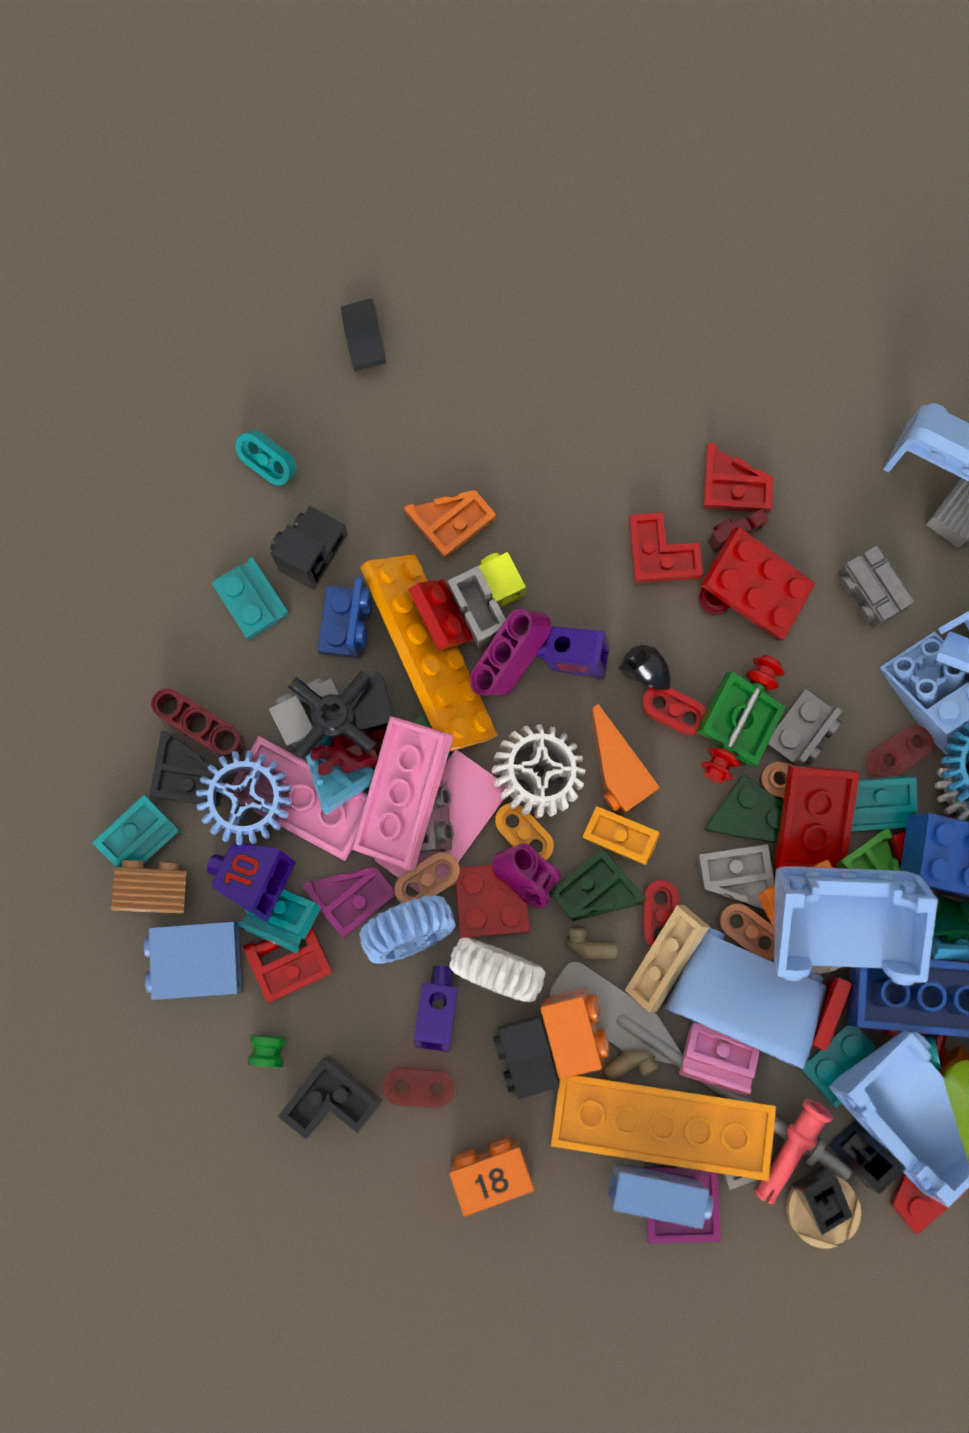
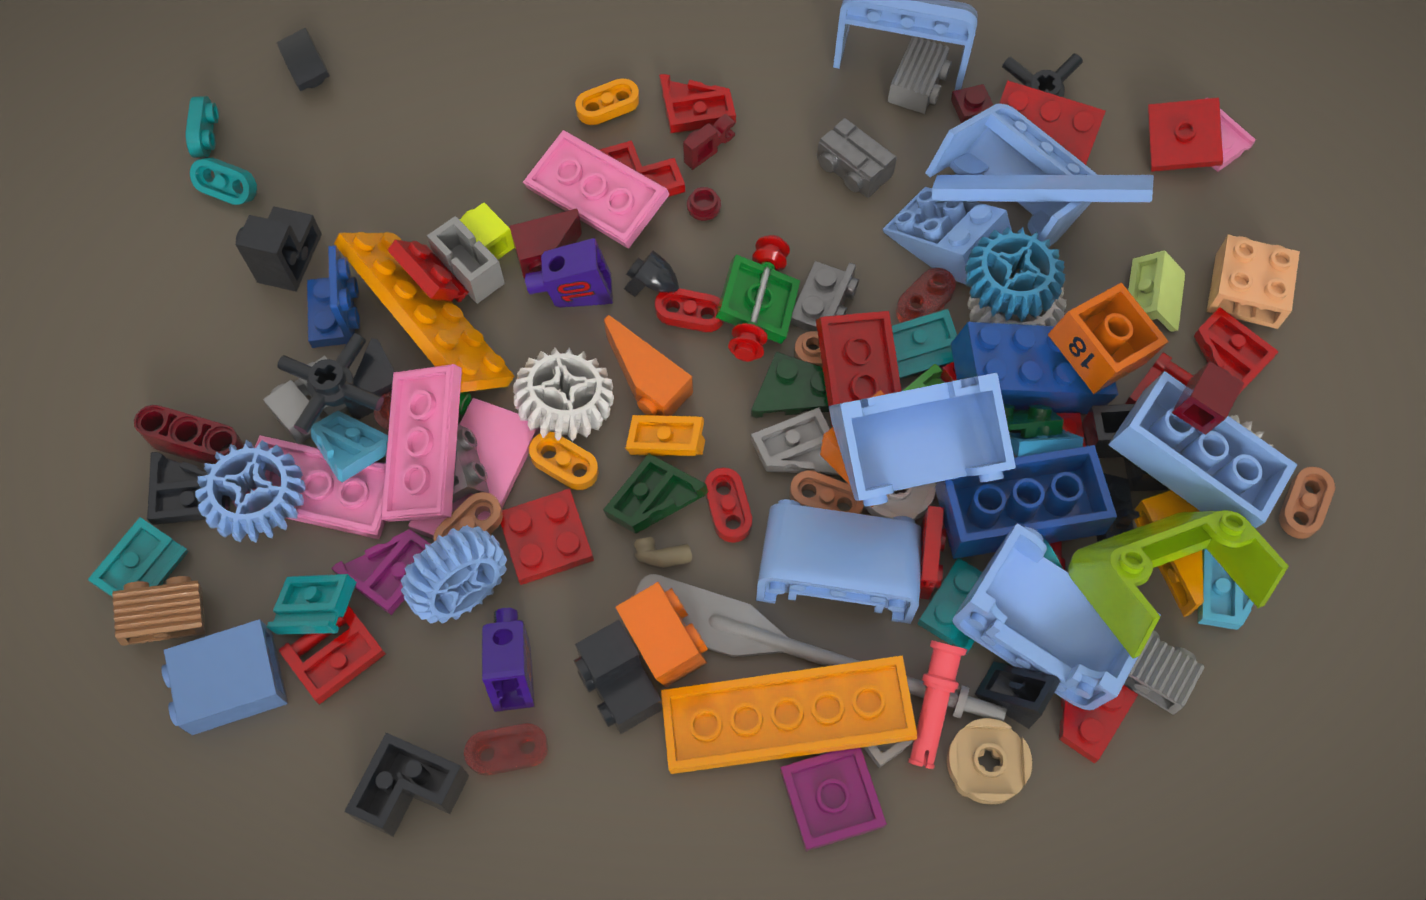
camera: 15 degrees left, 15 degrees down
(250, 598) = (229, 312): teal plate -> none
(251, 401) = (200, 126): none -> teal plate
(251, 876) = (274, 569): dark purple torso -> none
(266, 1051) = (324, 753): green wheel -> none
(344, 754) = (351, 420): dark red plate -> none
(451, 520) = (424, 195): orange wing -> none
(490, 1176) = (607, 815): orange brick -> none
(497, 969) = (562, 590): white gear -> none
(524, 645) = (507, 288): magenta beam -> none
(526, 873) = (571, 489): magenta piece -> none
(558, 600) = (544, 234): none -> dark red slope
(616, 558) = (600, 187): none -> bright pink tile
(630, 1060) = (736, 655): dark tan arm -> none
(648, 458) = (603, 101): none -> light orange plate
(659, 1195) = (800, 778): medium blue brick -> none
(667, 958) = (743, 538): tan plate -> none
(719, 1060) = (830, 630): bright pink plate -> none
(758, 584) = (740, 178): red plate -> none
(823, 1198) = (984, 742): black slope -> none

